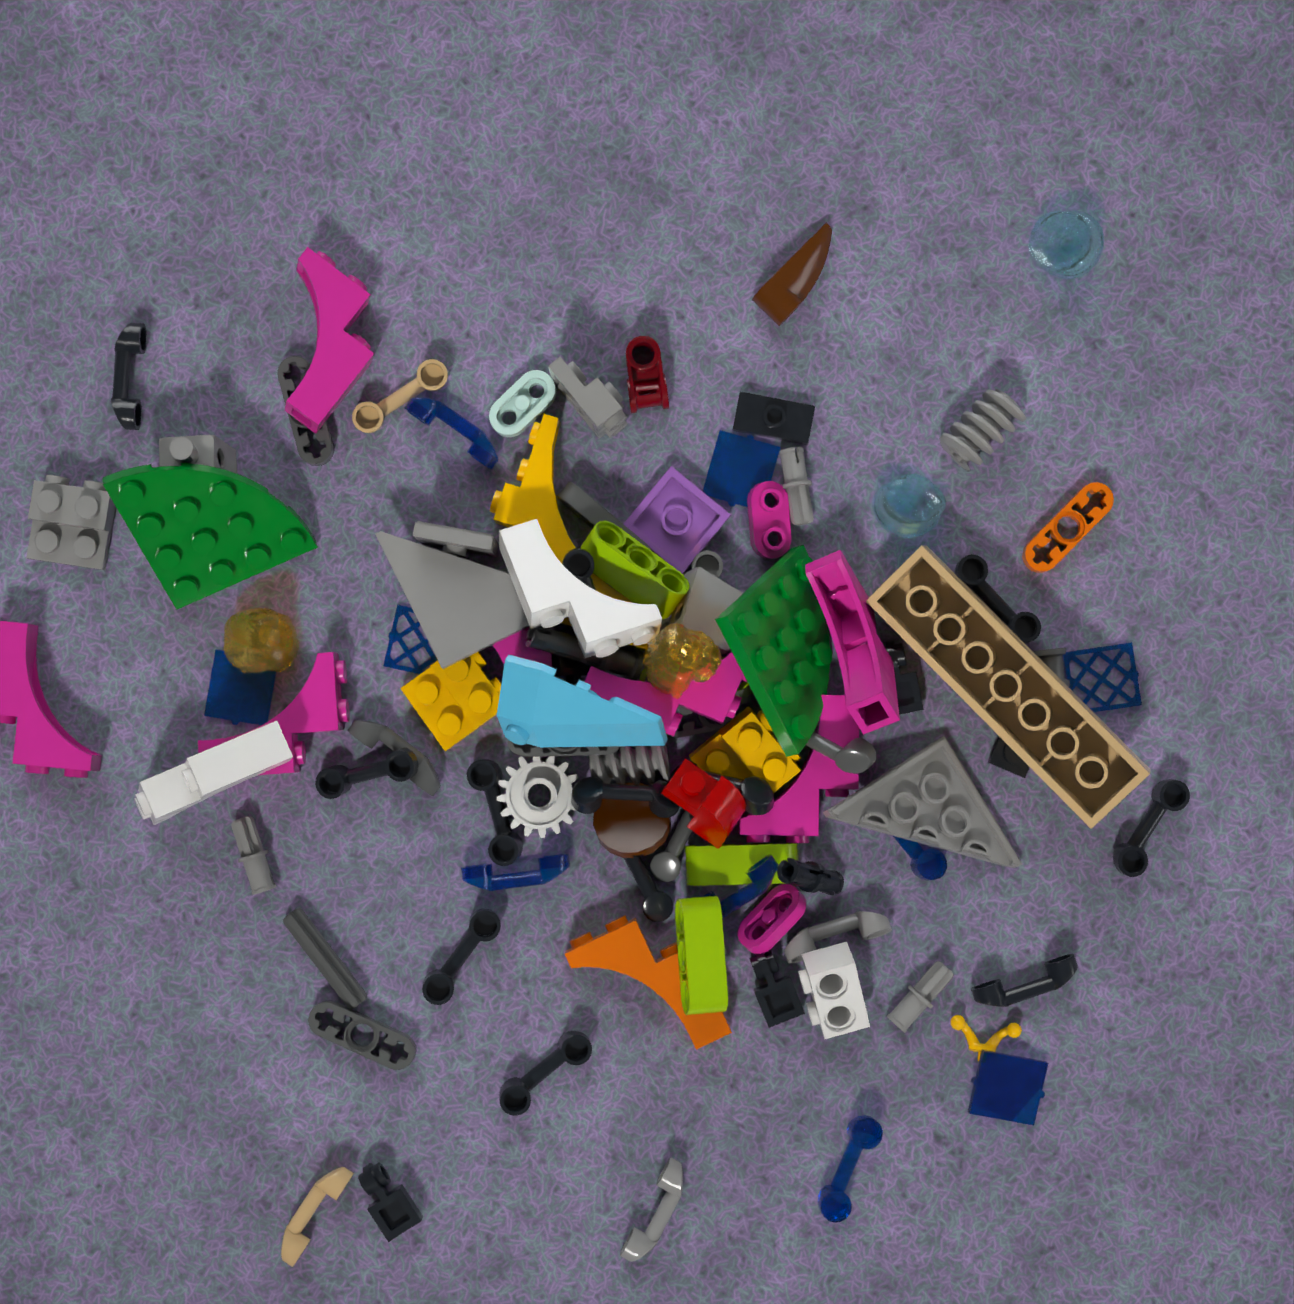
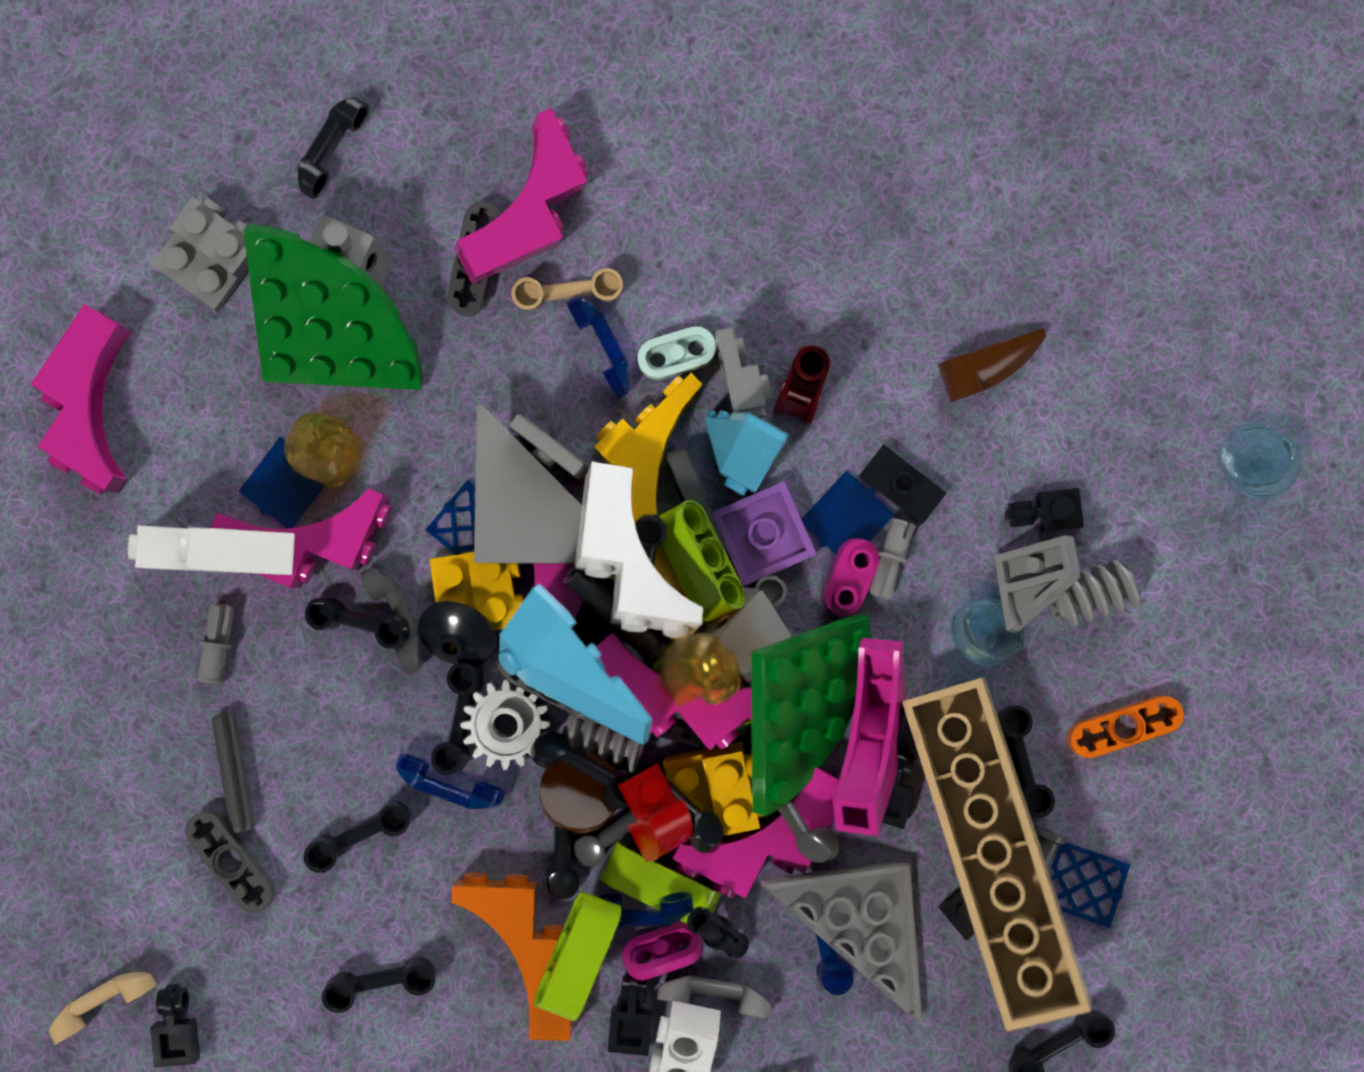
camera: 30 degrees right, 0 degrees up
(457, 738) = (457, 633): none -> black dish
(621, 455) = (742, 448): none -> medium azure wedge
(916, 373) = (1055, 509): none -> black plate
(925, 440) = (1034, 578): none -> light grey wing

